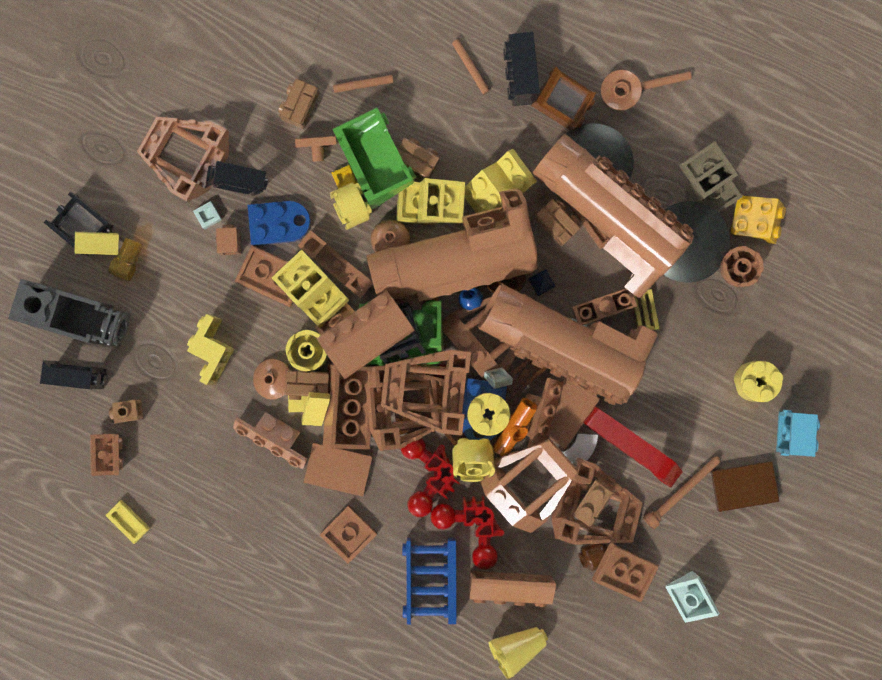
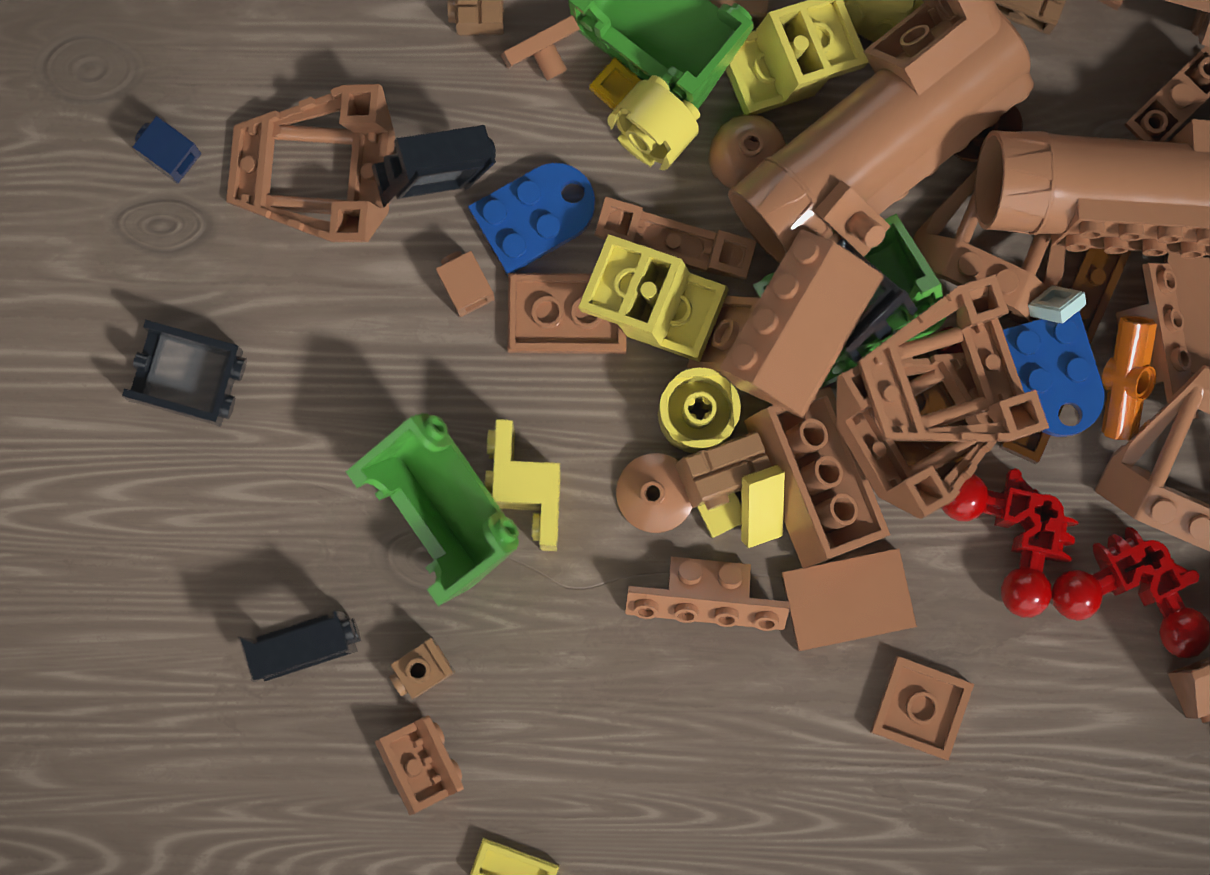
camera: 25 degrees left, 5 degrees down
(68, 314) = (243, 536): dark grey piece -> none
(96, 243) = (234, 389): light yellow tile -> none
(118, 114) = (166, 149): none -> dark blue brick
(124, 264) = (296, 409): clear yellow piece -> none
(166, 340) = (440, 502): none -> bright green windscreen
(207, 215) = (404, 257): light aqua tile -> none
(415, 295) = (852, 218): none -> nougat tile
(448, 590) = (1151, 723): blue fence -> none
(470, 298) = (938, 192): blue plate -> none
(473, 459) = (1084, 466): light yellow brick -> none
(499, 419) = (1100, 372): light yellow brick -> none
(541, 282) = (1045, 110): dark blue slope -> none

